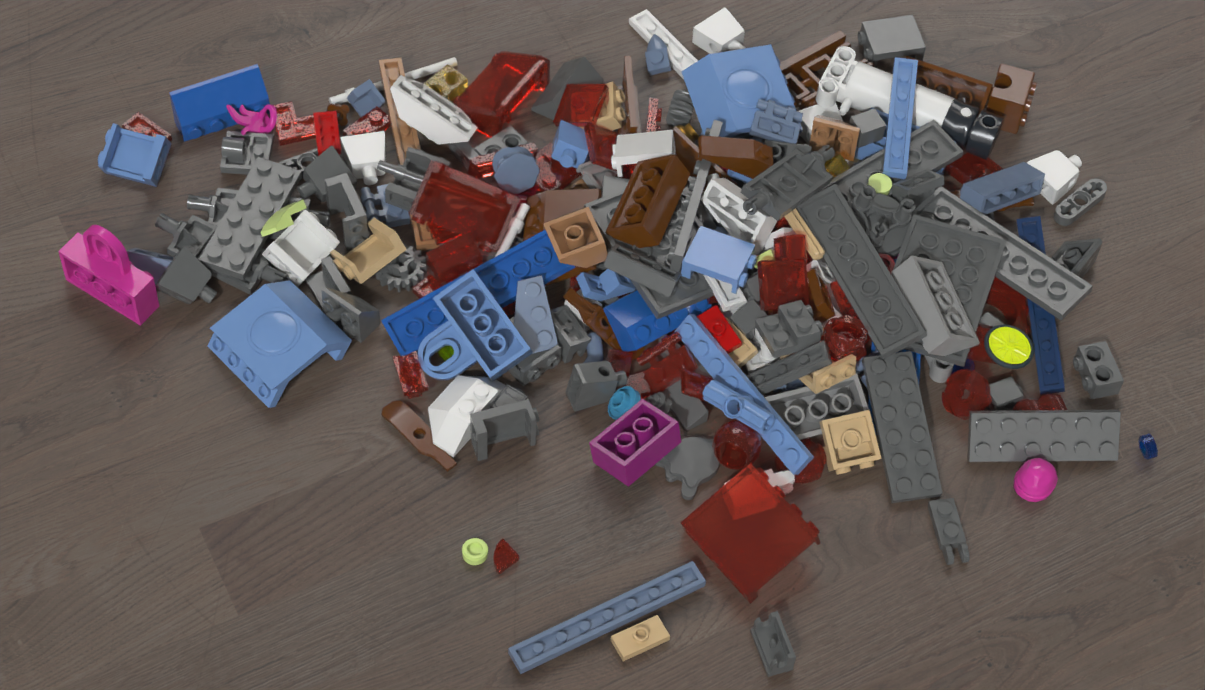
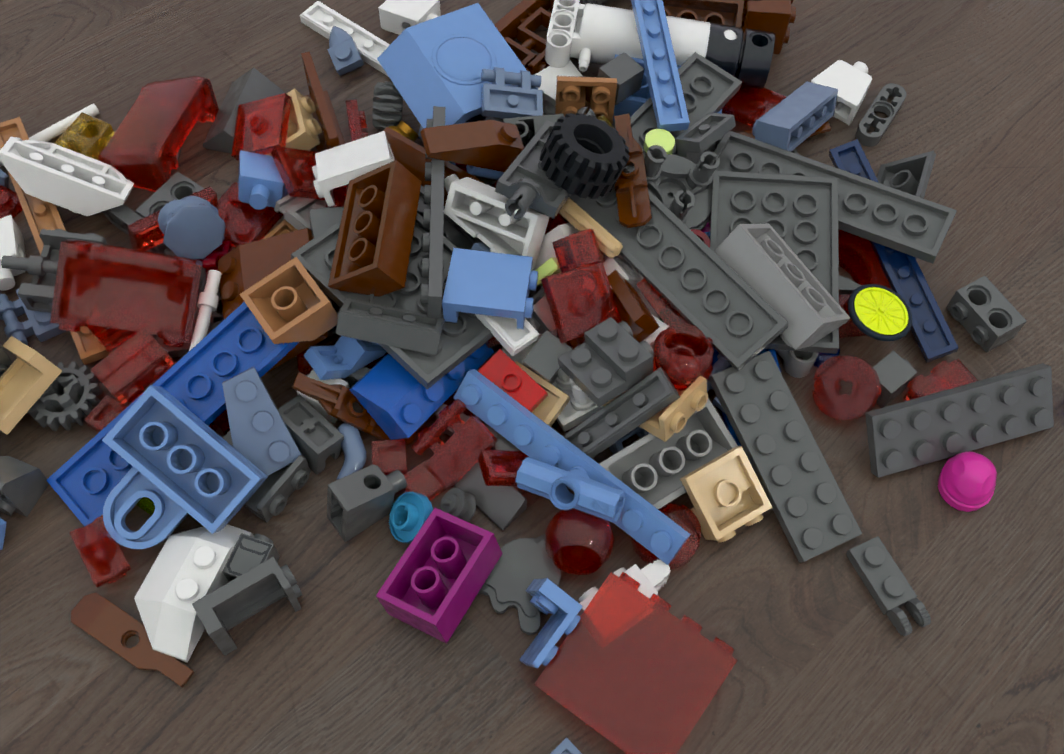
camera: 15 degrees left, 5 degrees up
(704, 473) = (564, 619): none -> medium blue bracket
(812, 181) = (584, 155): none -> black tyre
(844, 212) = (632, 187): none -> reddish brown piece

